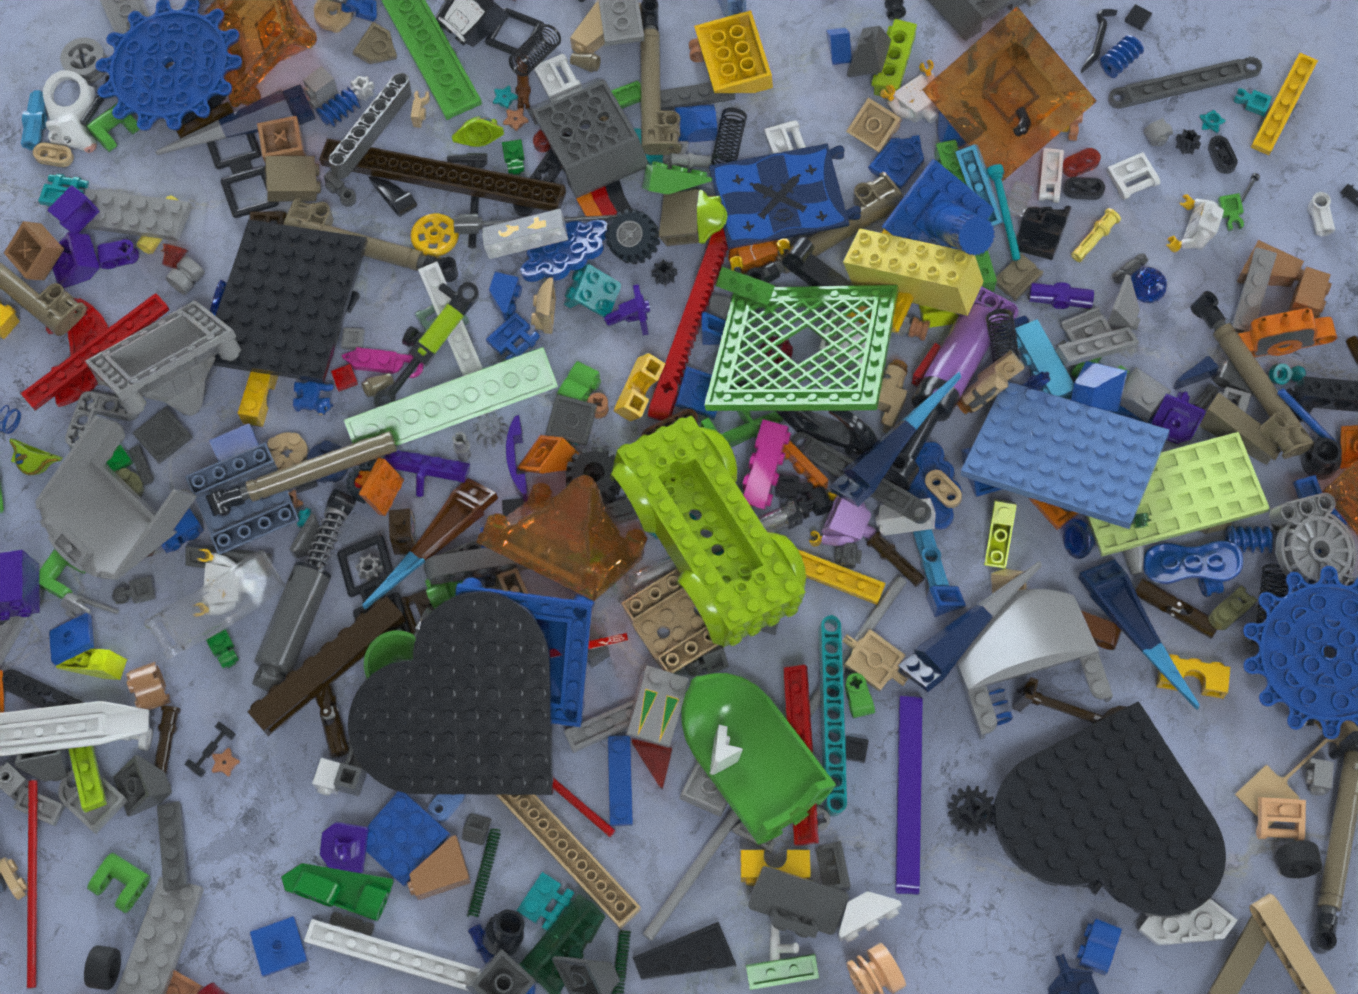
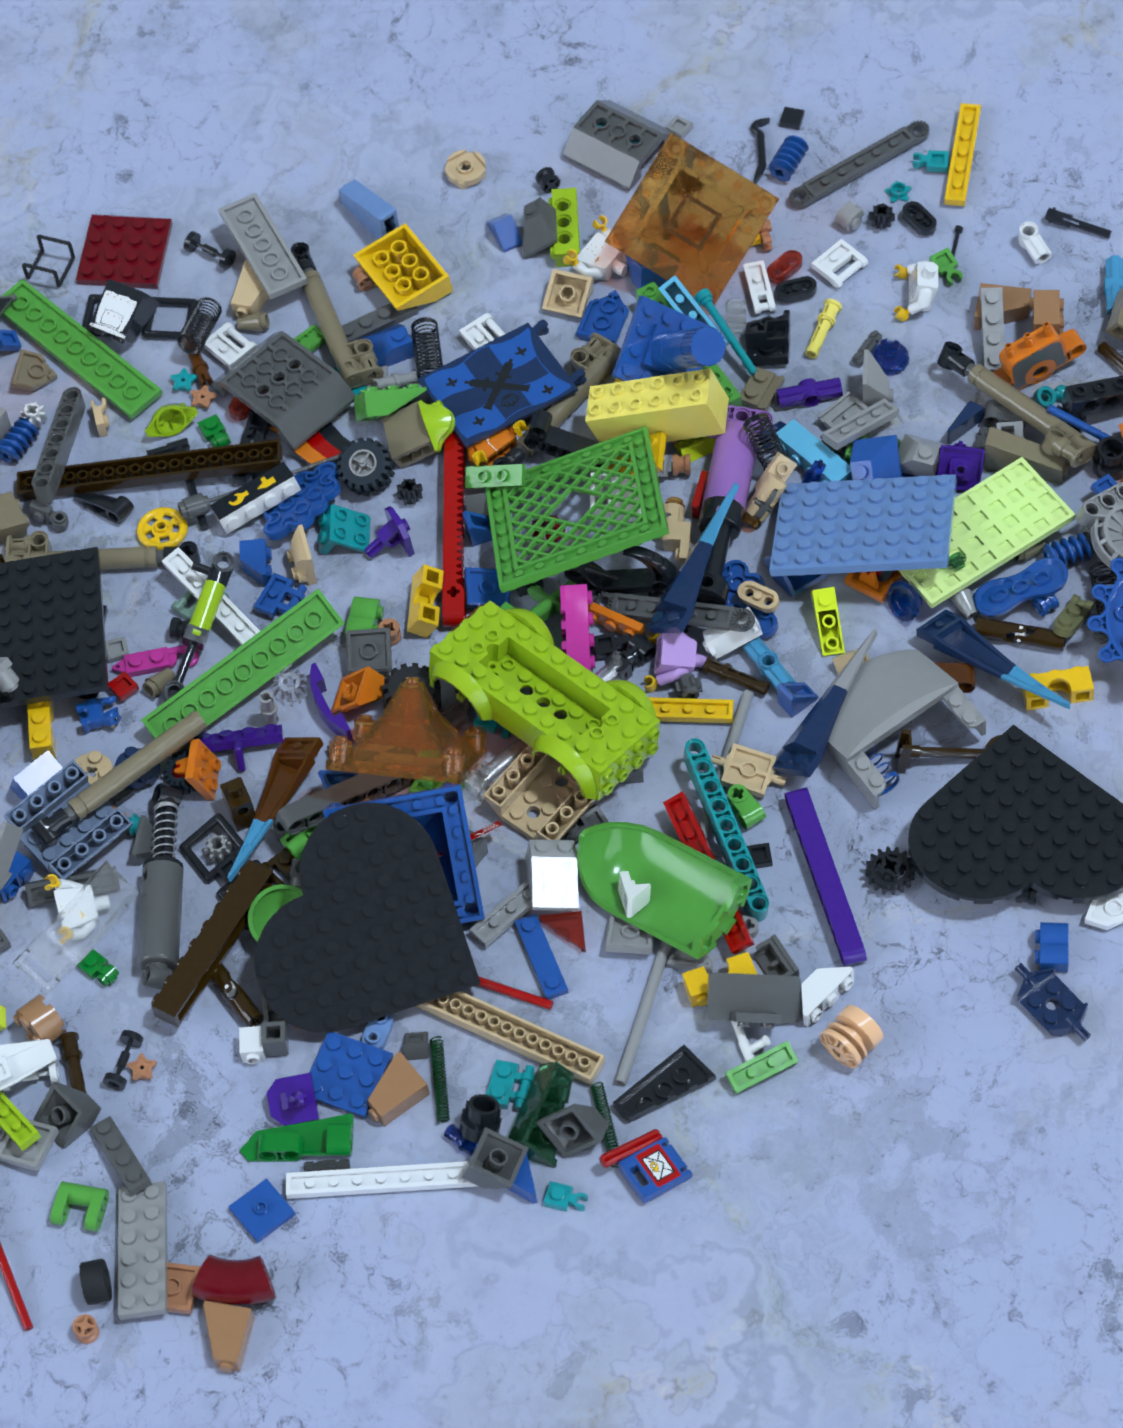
camera: 15 degrees left, 10 degrees down
(1024, 122) = (716, 243): black arm -> none

